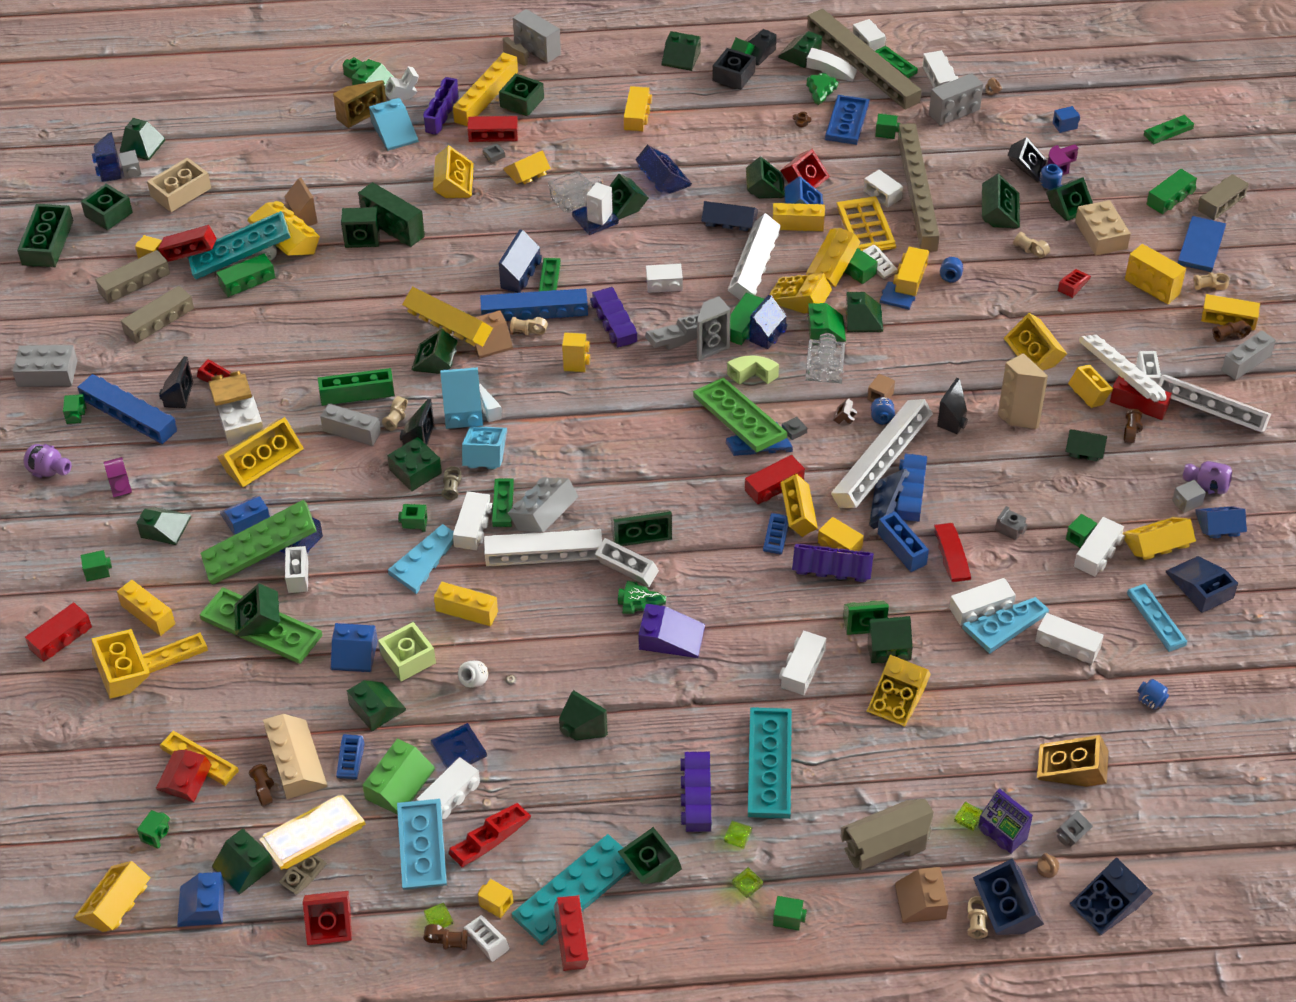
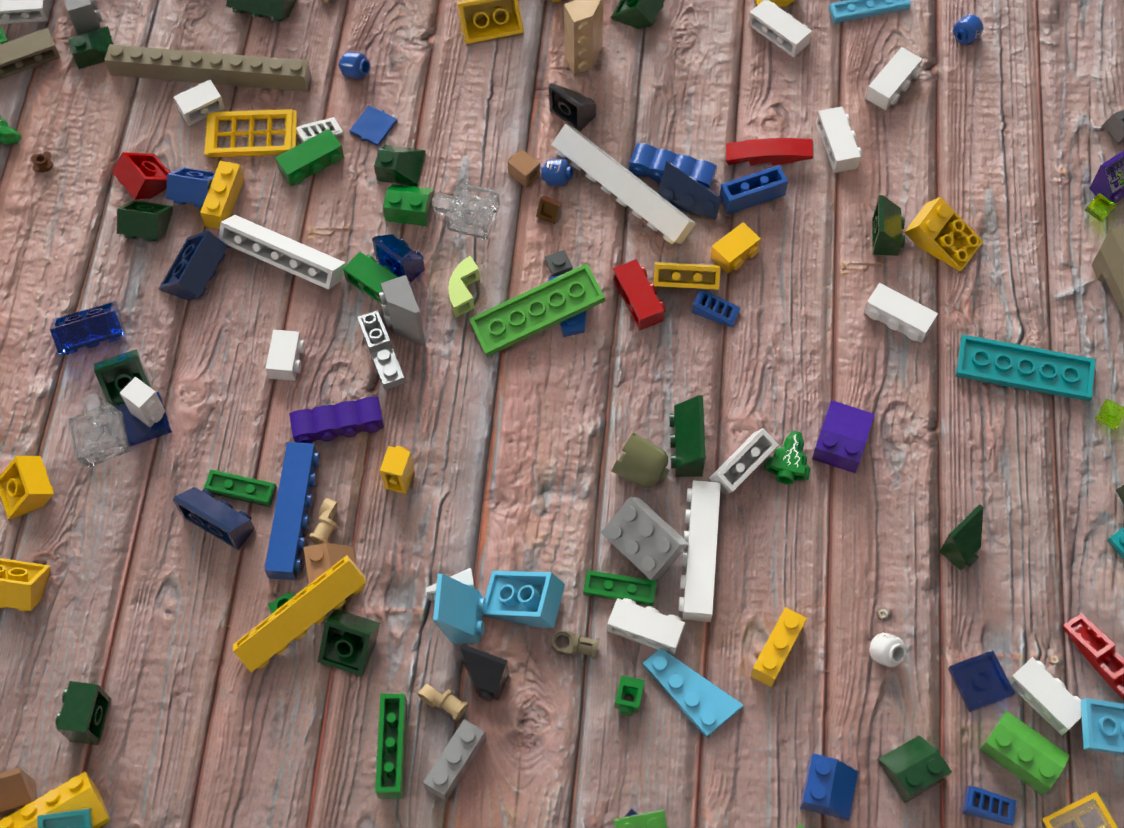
camera: 80 degrees left, 15 degrees up
(394, 214) = (77, 660): dark green brick -> none
(407, 651) = (848, 721): yellowish green brick -> none
(414, 464) = (541, 685): dark green brick -> none
(612, 494) = (642, 462): none -> olive cylinder
(697, 792) = (1061, 440): dark purple brick -> none
(799, 290) = (348, 219): yellow slope -> none
(832, 561) = (771, 259): dark purple brick -> none
(834, 255) = (310, 169): yellow slope -> none
(847, 119) = (59, 116): blue tile -> none
(858, 615) = (848, 242): green slope -> none
(887, 126) = (91, 77): green brick -> none
(911, 271) = (347, 102): yellow brick -> none
(916, 114) = (90, 47): none -> dark green slope
(1001, 627) = (870, 130): medium azure wing -> none
(1011, 524) = (737, 93): flat silver brick -> none
(1074, 761) = (1043, 109): pearl gold slope -> none
(1080, 530) = (757, 37): green brick -> none

